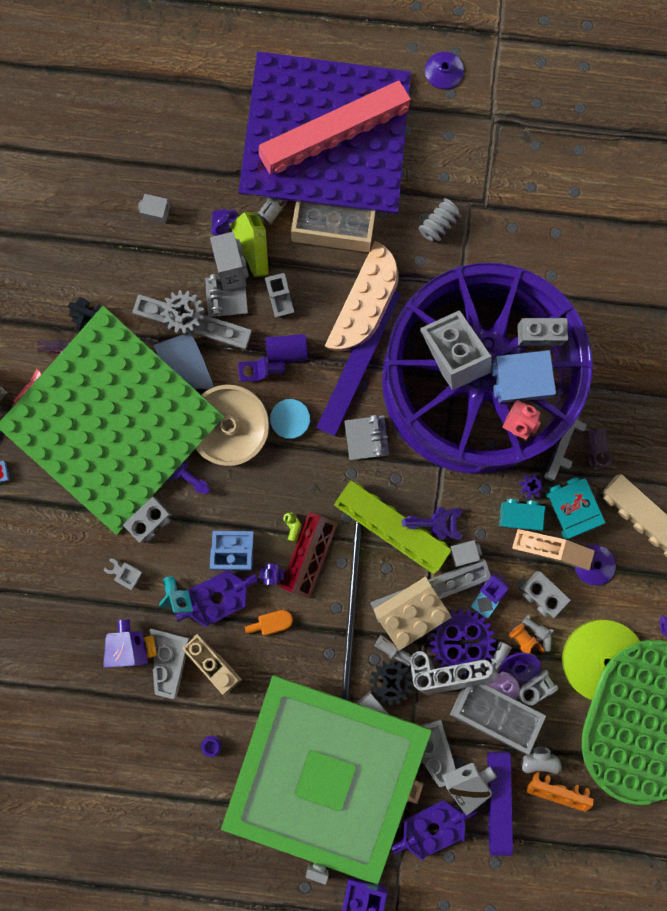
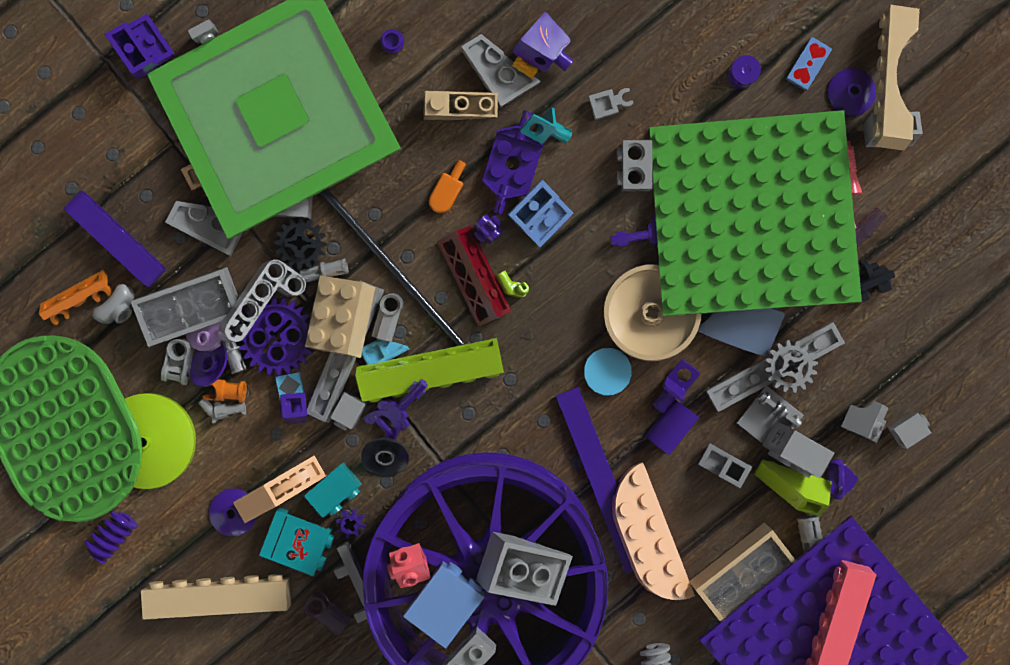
camera: 135 degrees right, 5 degrees up
(28, 509) = (744, 72): none -> dark purple piece
(173, 237) = (866, 421): none -> light grey brick
(366, 437) = (528, 422): light grey hinge -> none
(386, 583) = (386, 319): none -> light grey piece
(408, 568) = (382, 351): none -> medium azure tile
(422, 842) = (143, 144): dark purple plate -> none
(469, 786) = (152, 227): light grey torso -> none
(471, 504) = (385, 456): none -> black dish
(547, 591) = (249, 449): light grey brick -> none

